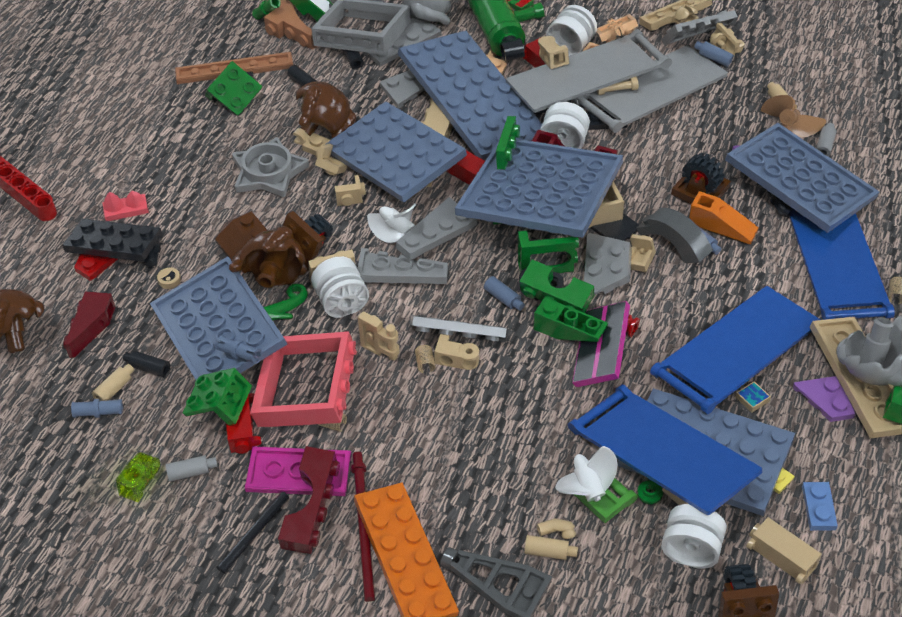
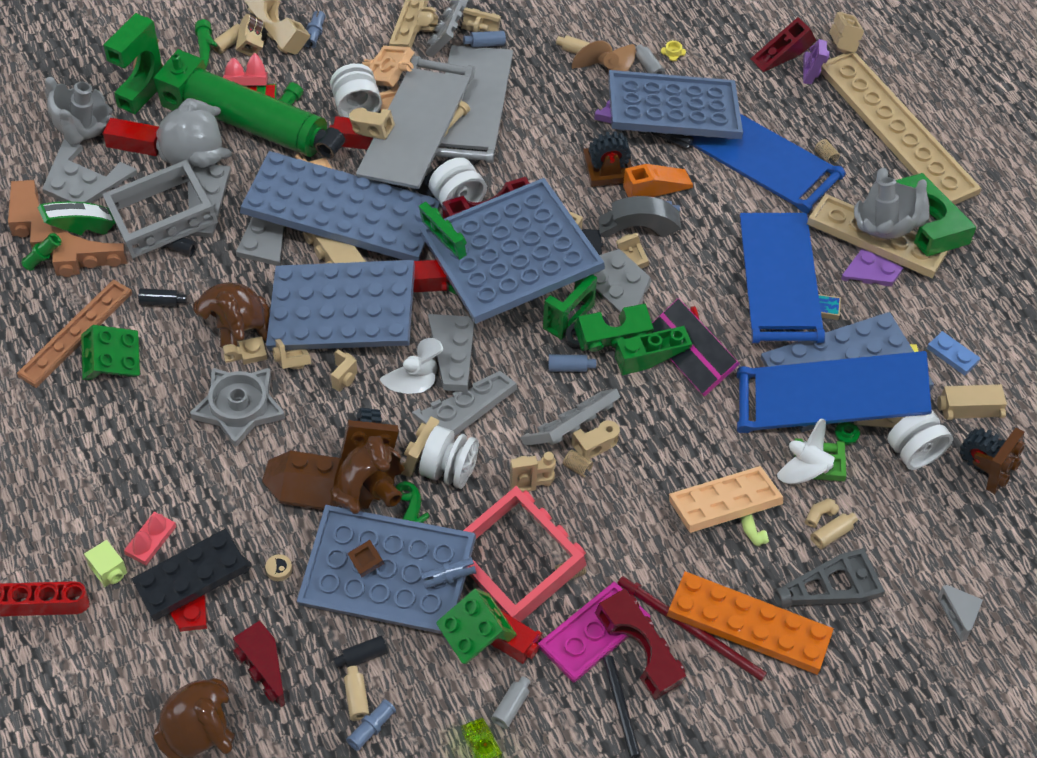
camera: 50 degrees left, 5 degrees up
(82, 201) = (106, 563): none -> yellowish green brick
(206, 303) = (365, 558): none -> reddish brown plate
(486, 505) = (750, 530): none -> yellowish green arm
(493, 460) = (725, 499): none -> light nougat plate
(857, 143) = (673, 50): none -> light yellow plate

